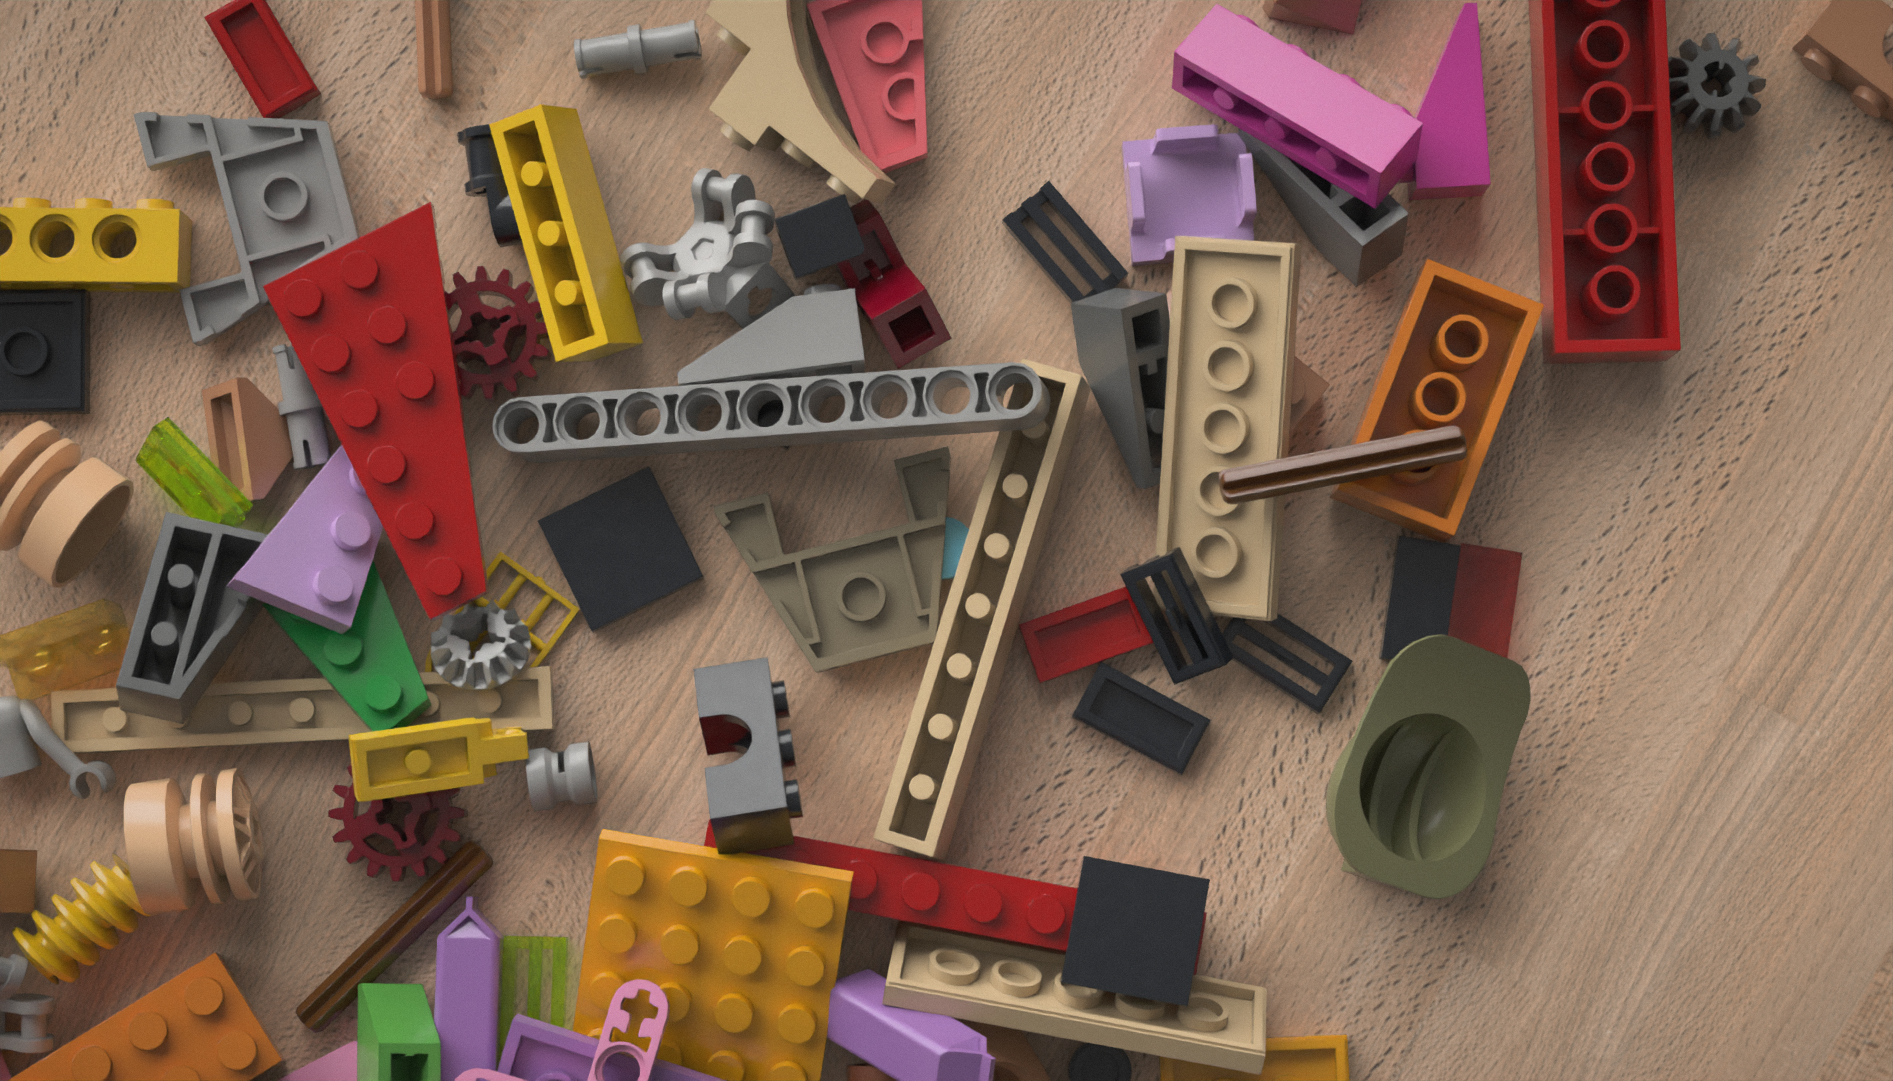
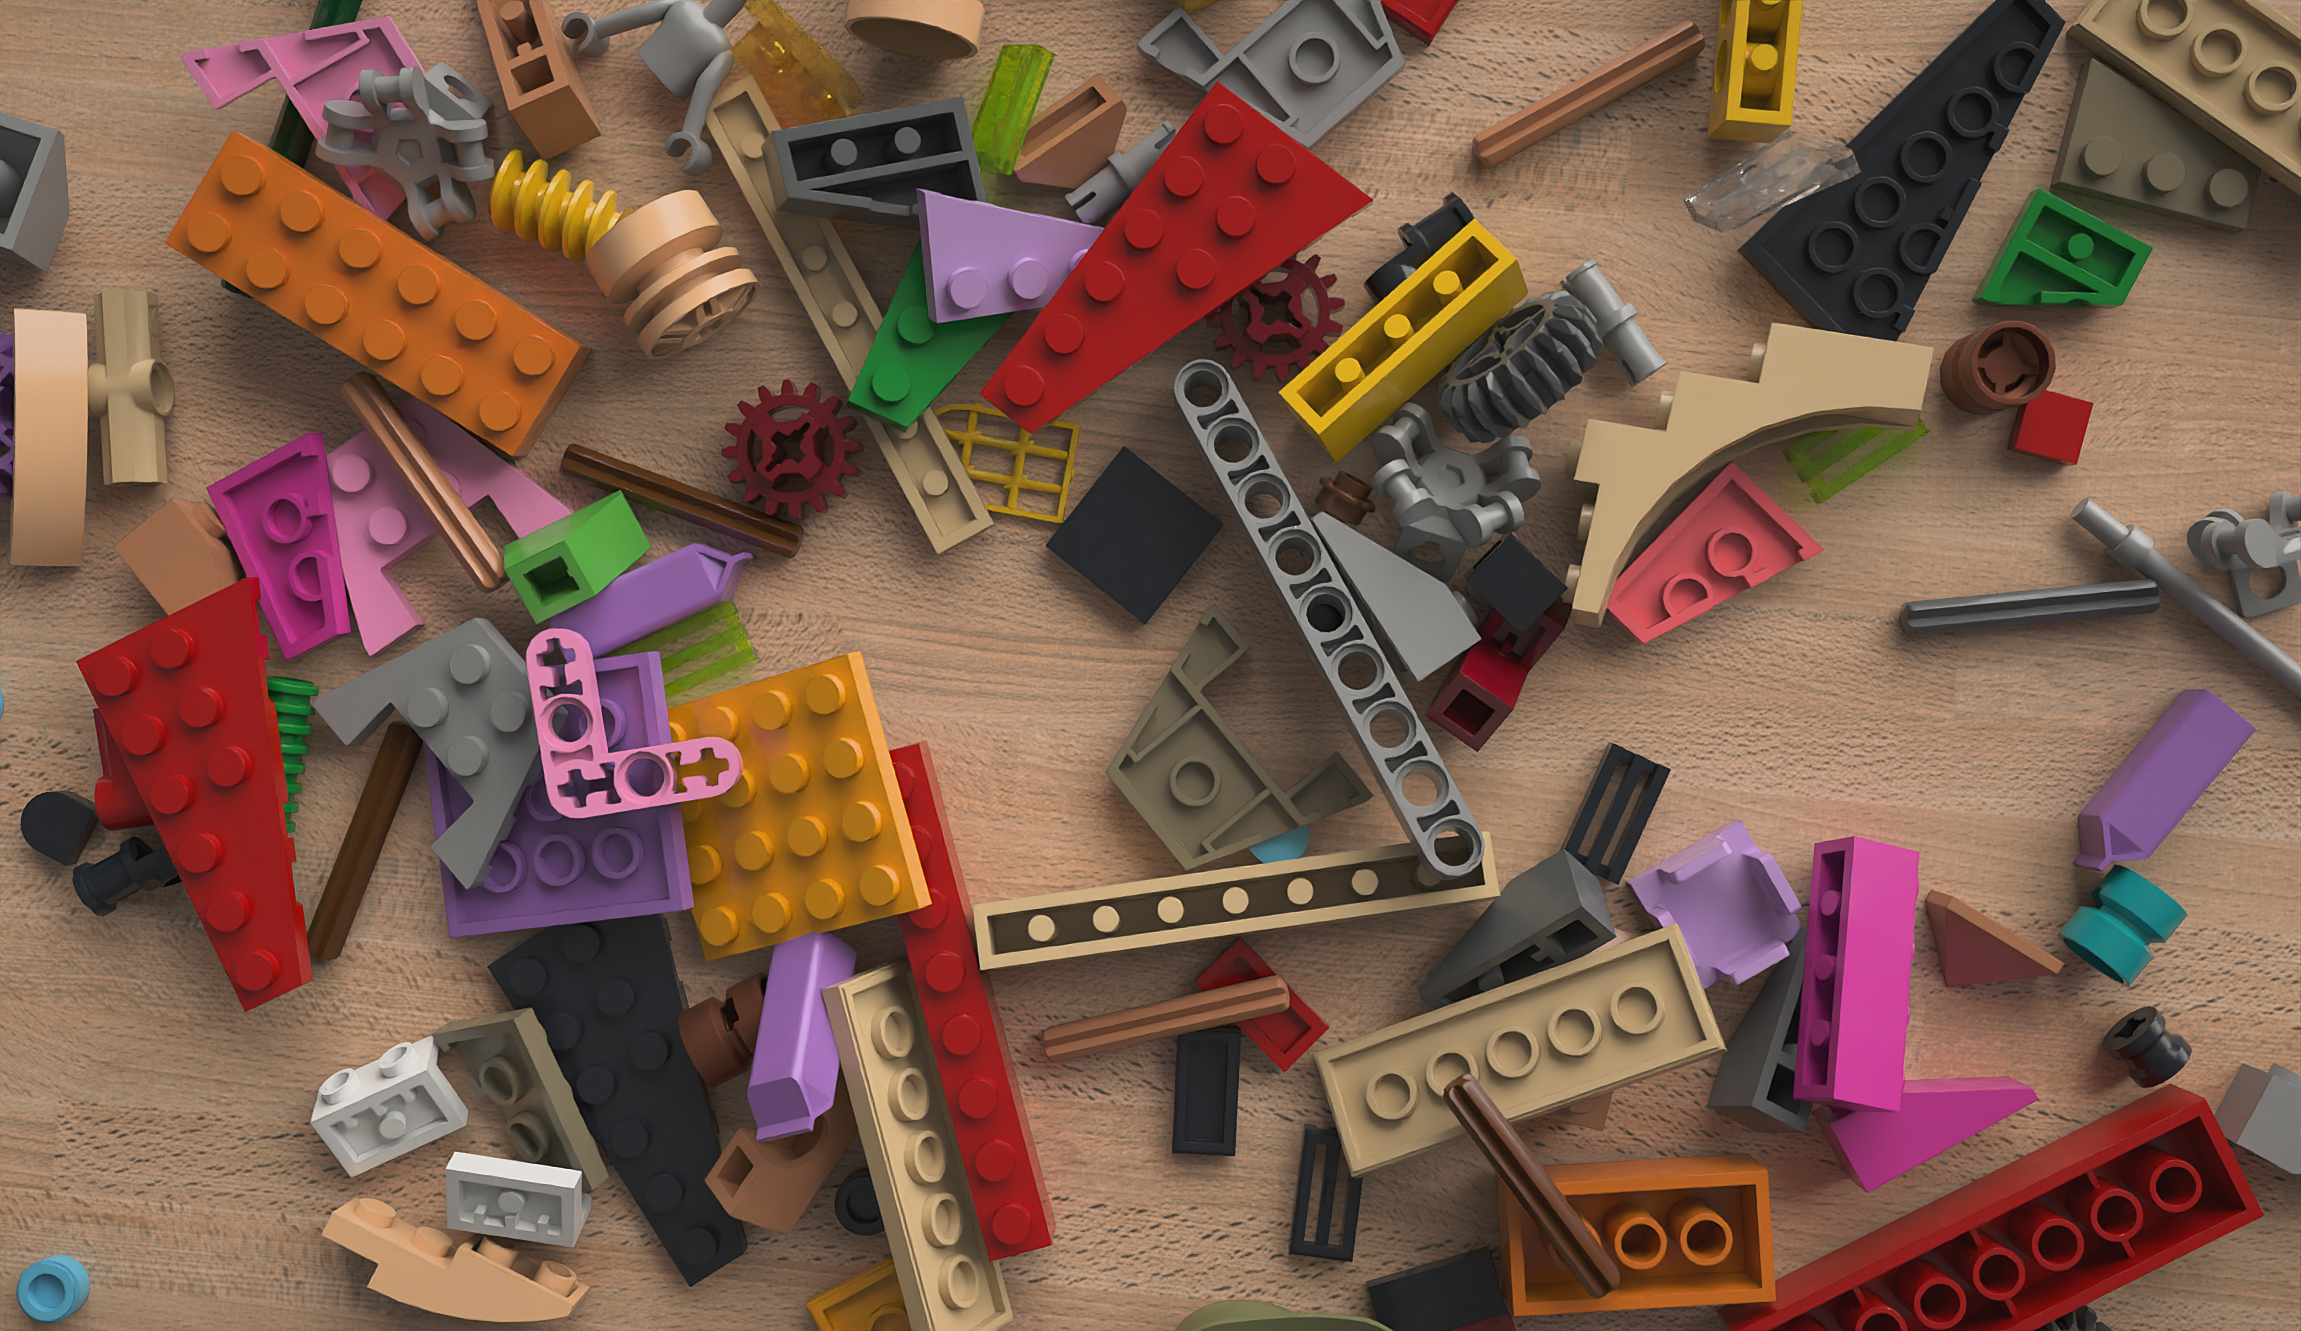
camera: 65 degrees right, 5 degrees up
(431, 757) = (853, 457): yellow hinge -> none
(495, 662) = (970, 472): light grey gear -> none
(561, 776) = (898, 583): light grey wheel -> none
(635, 146) = (1519, 367): none -> dark grey gear
(676, 348) = (1345, 497): none -> reddish brown plate
(749, 797) = (954, 776): arch -> none
(1058, 722) = (1166, 1018): none -> nougat axle
(1135, 930) = (1000, 1192): black tile -> none
(1185, 611) = (1332, 1100): black tile -> none

